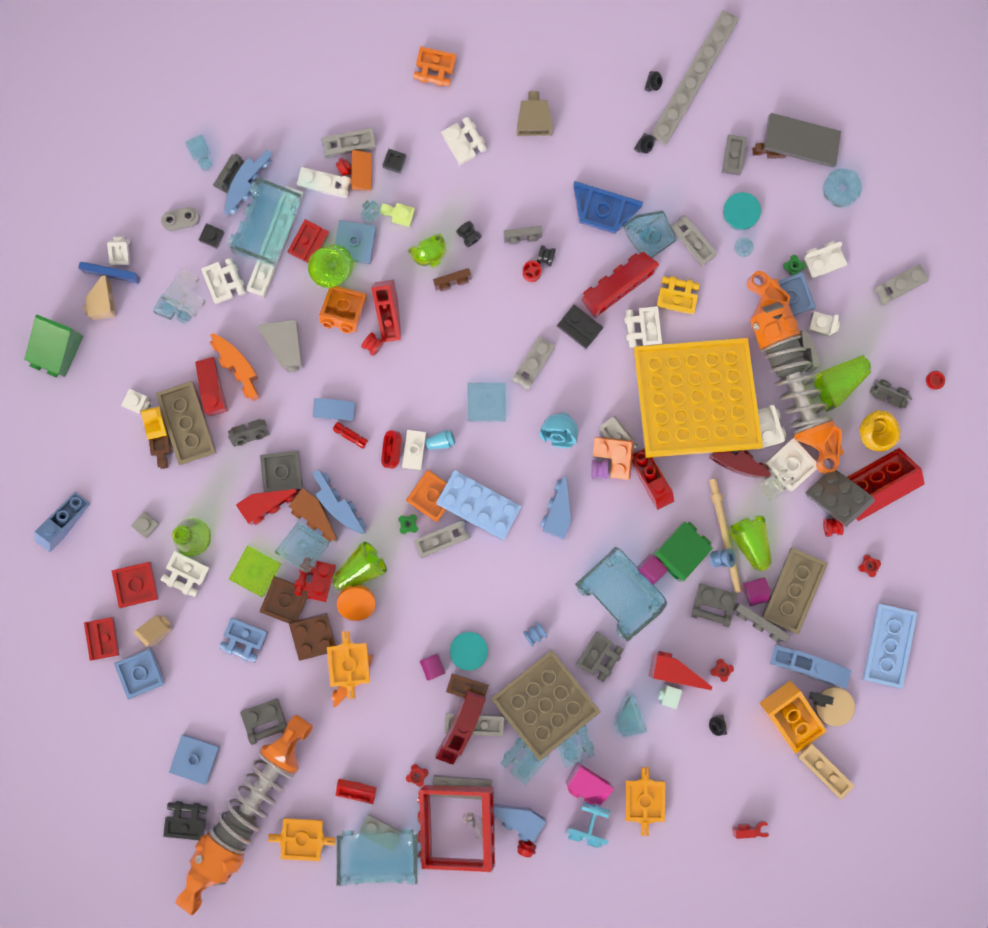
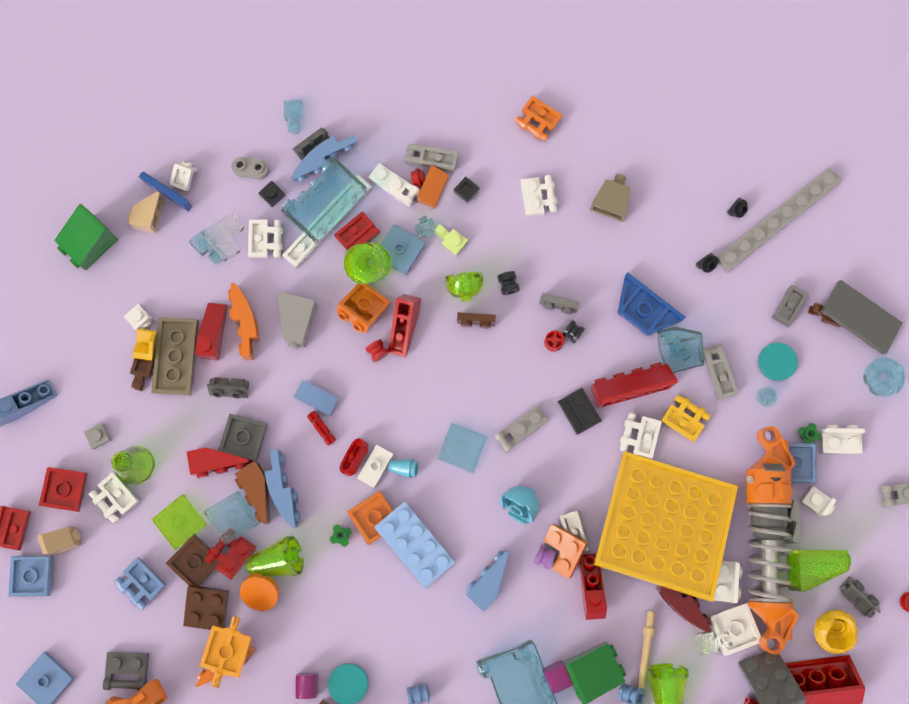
camera: 25 degrees right, 5 degrees down
(441, 539) = (365, 563): light grey plate -> none

